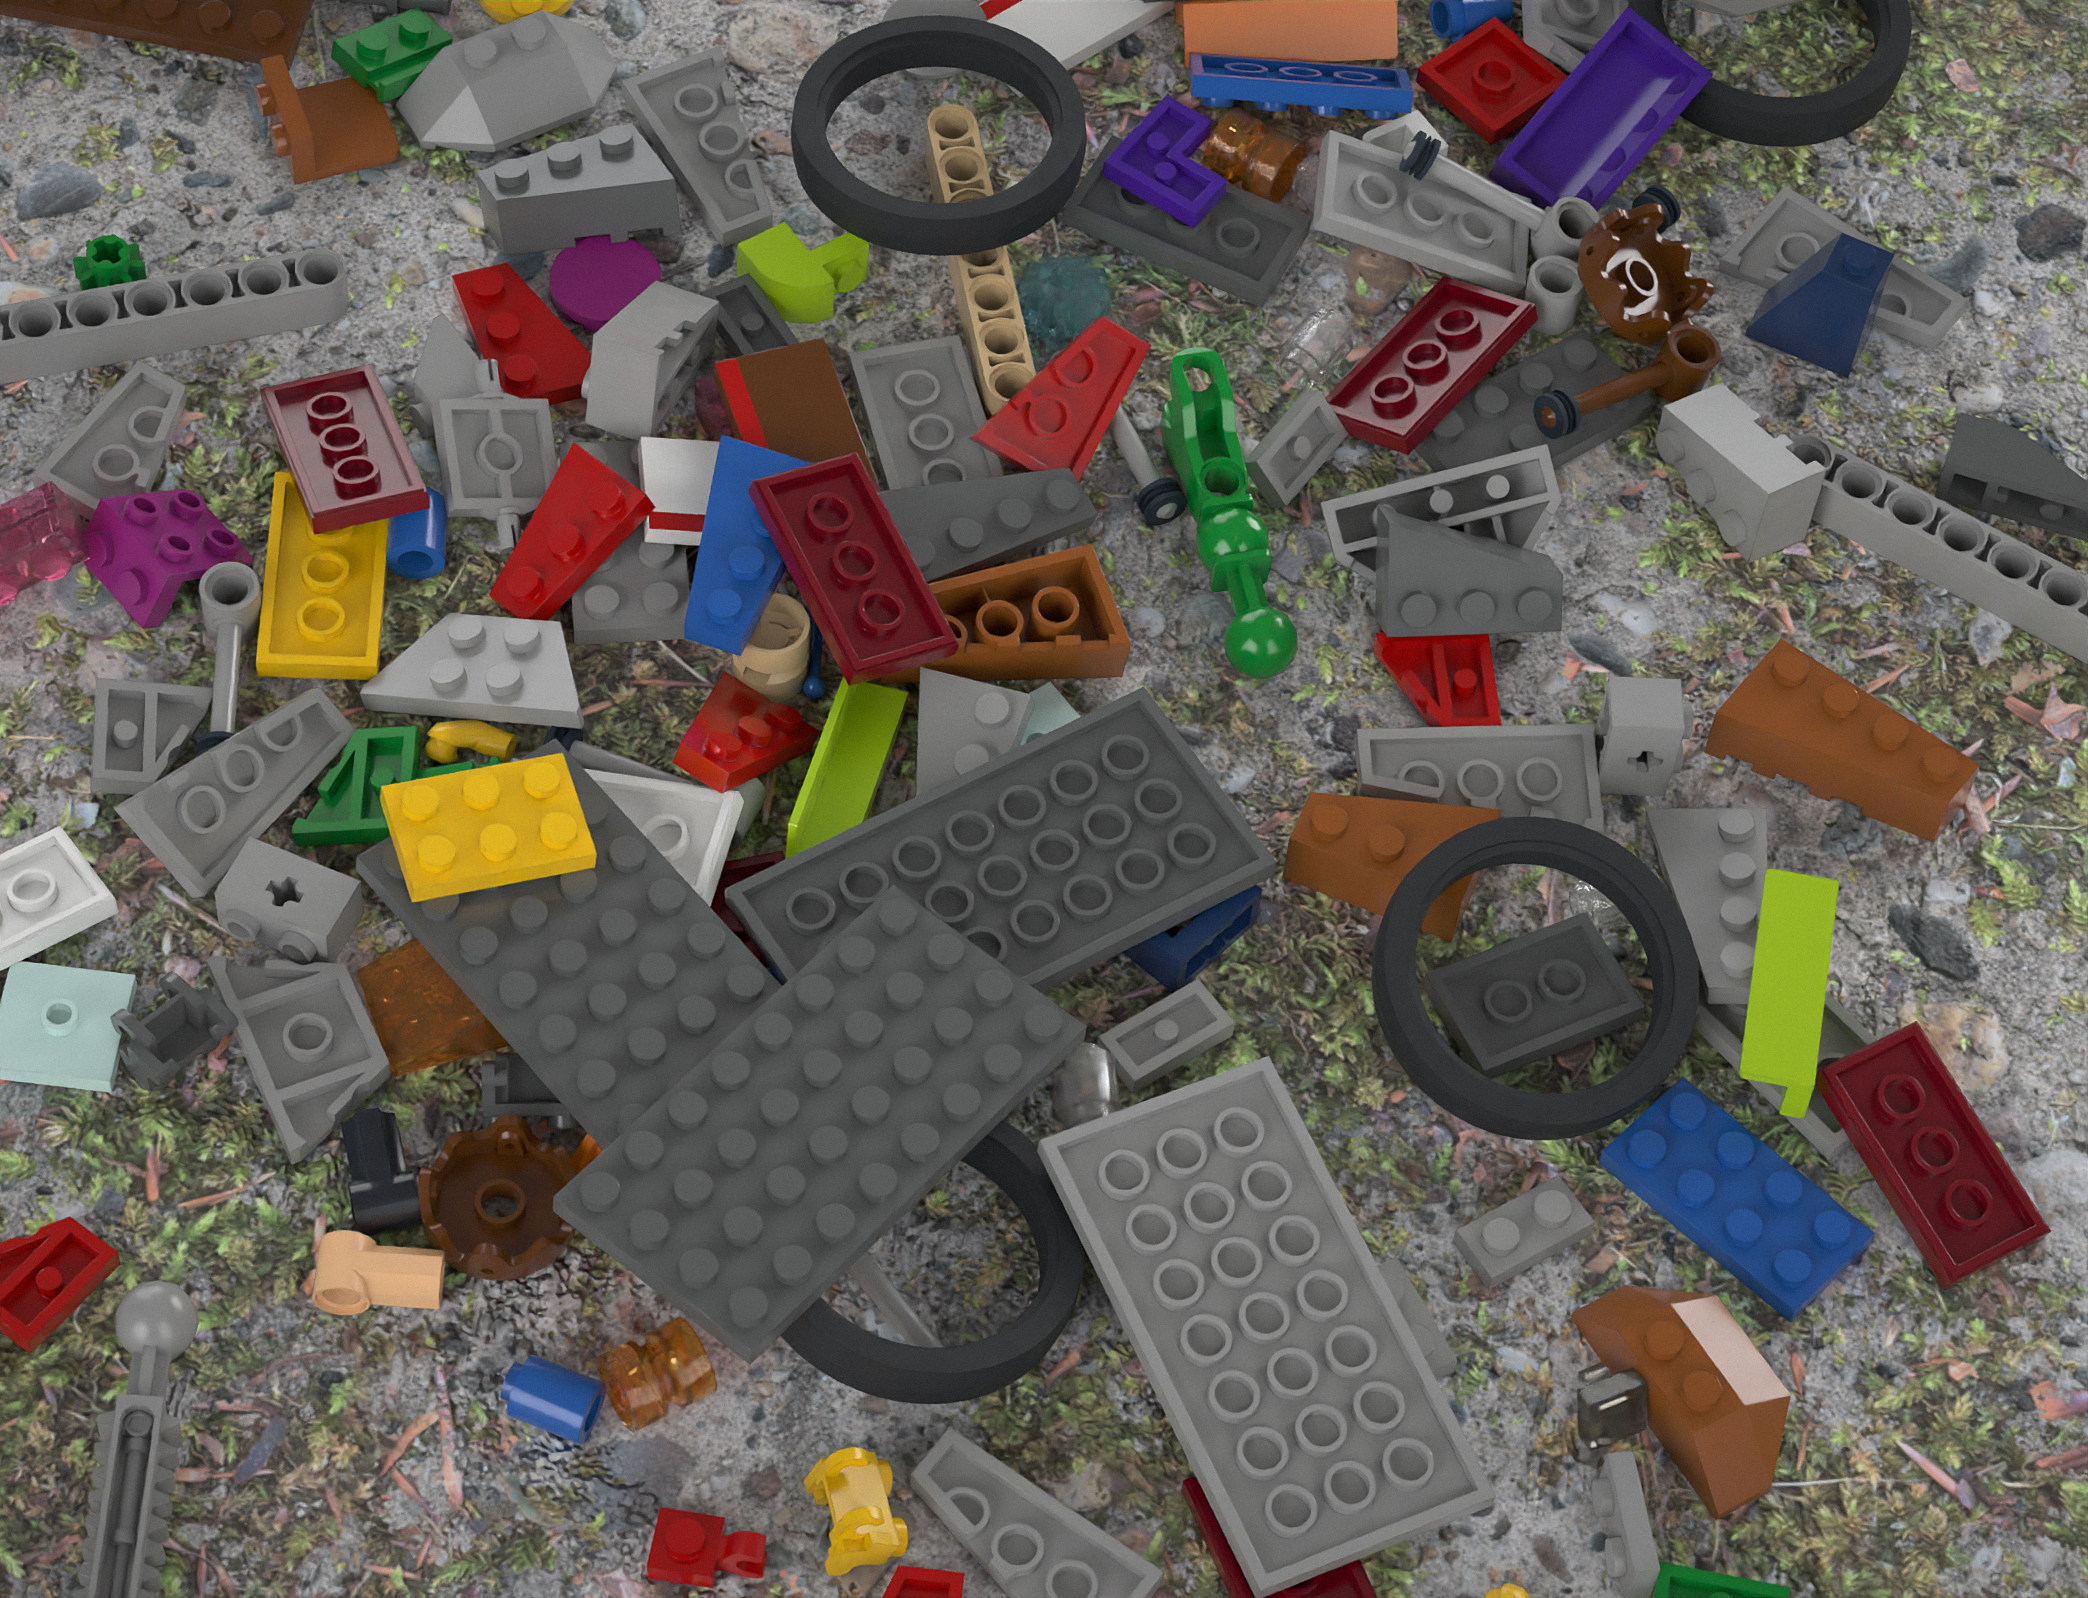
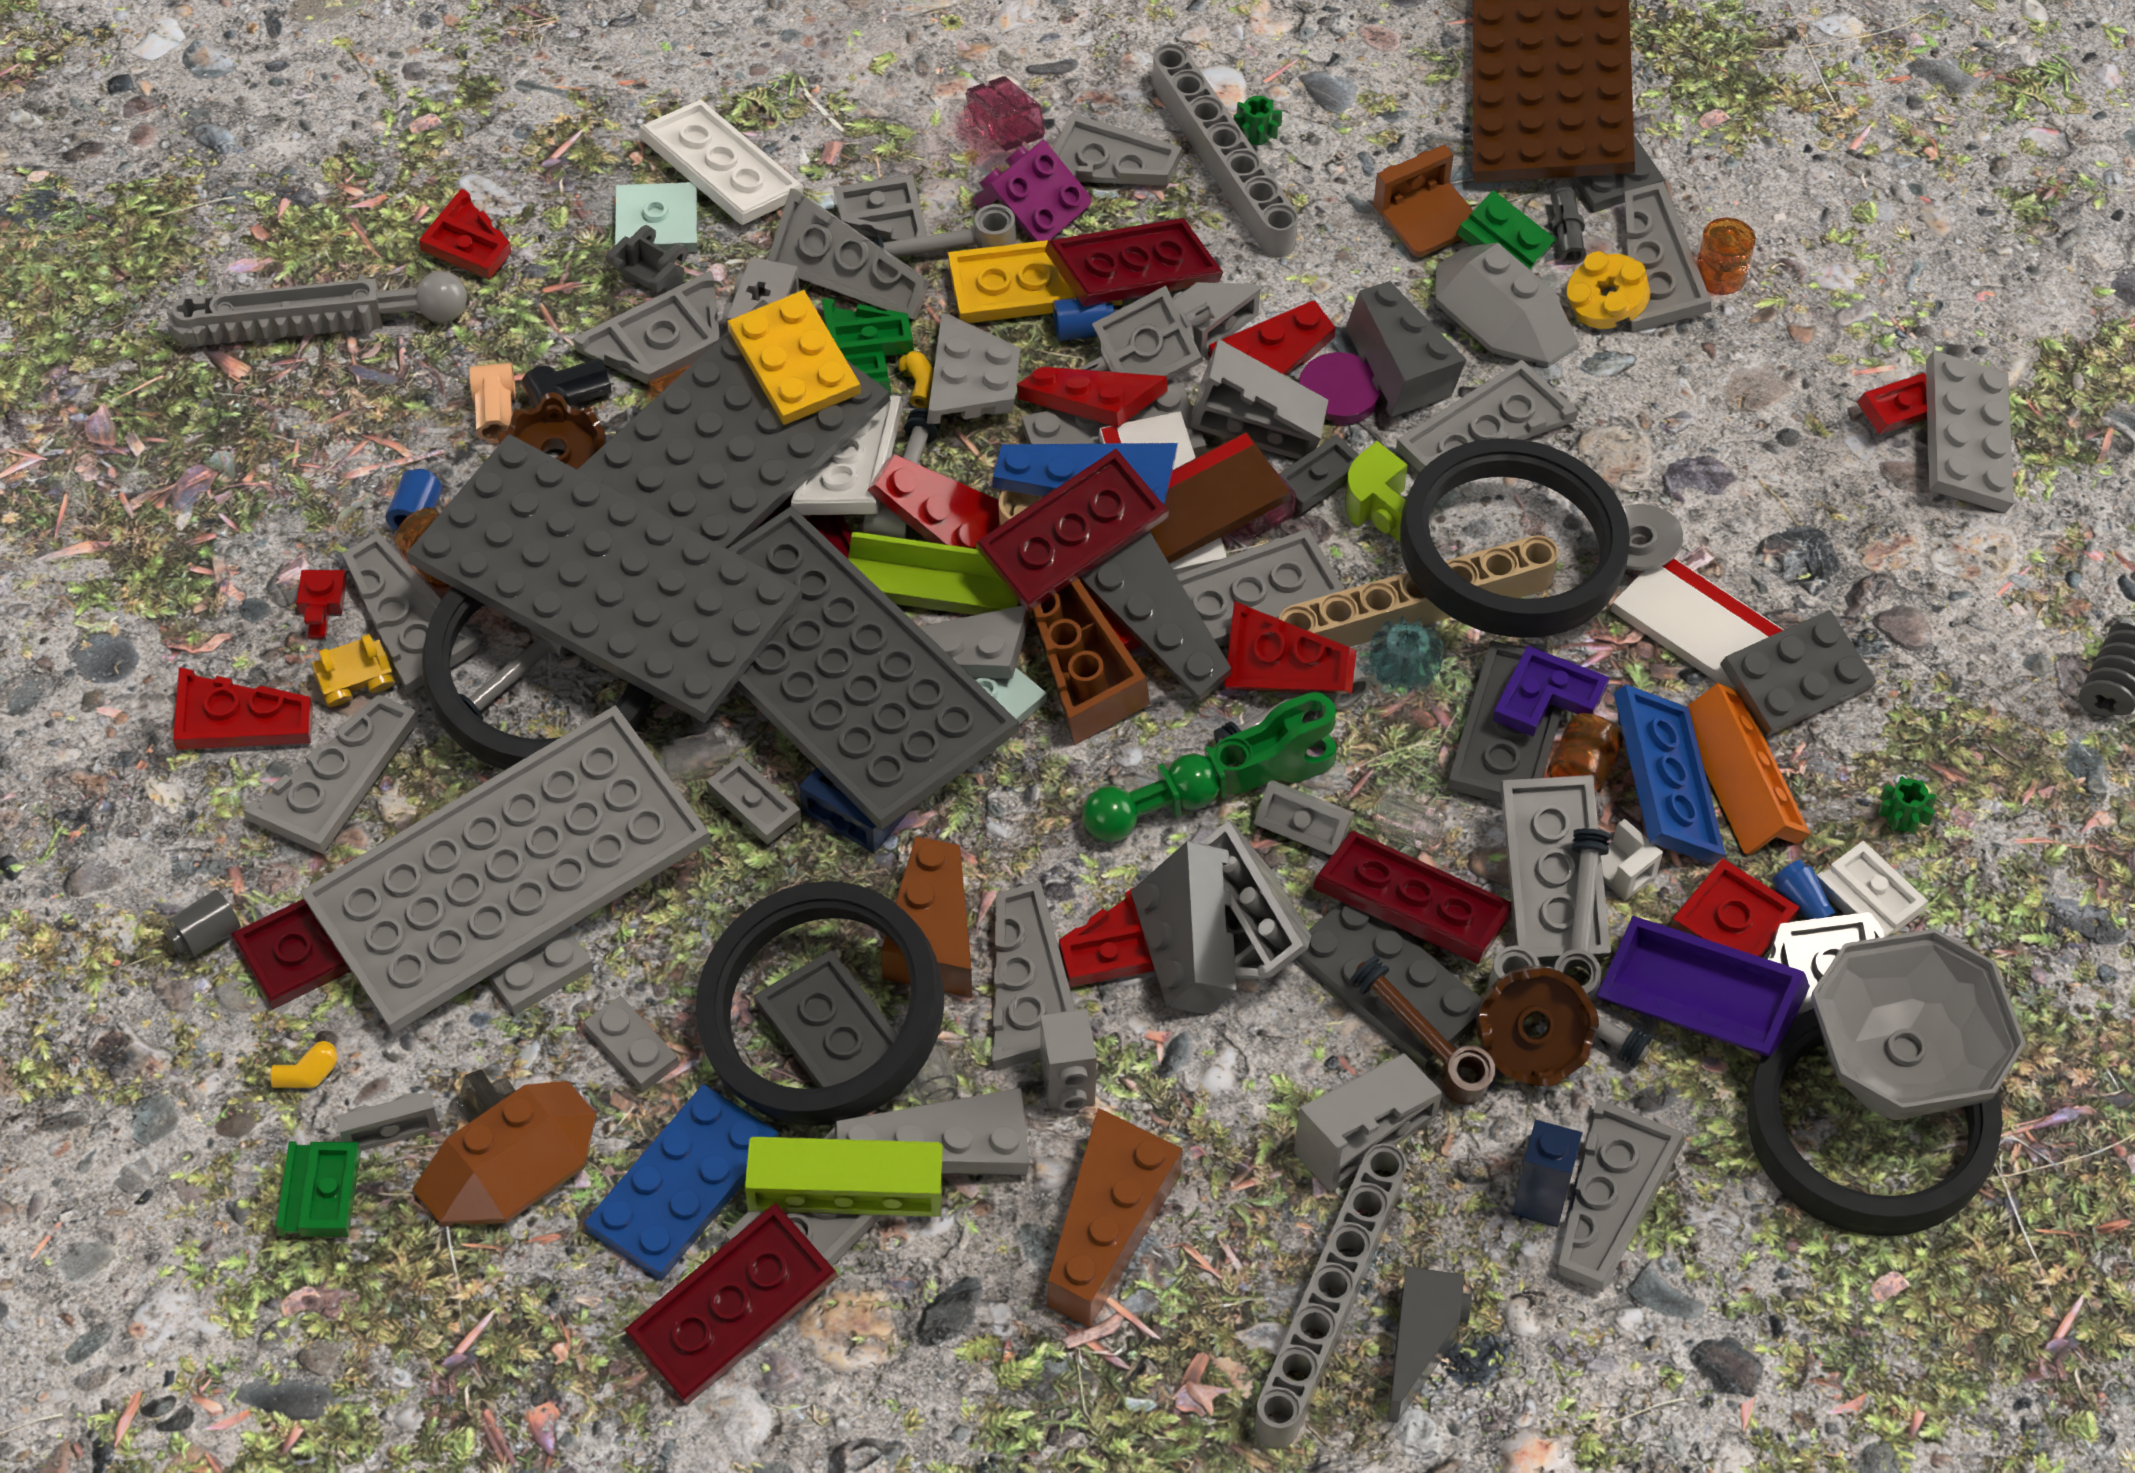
camera: 85 degrees right, 0 degrees up
(749, 1436) = (399, 607): none -> light grey wing

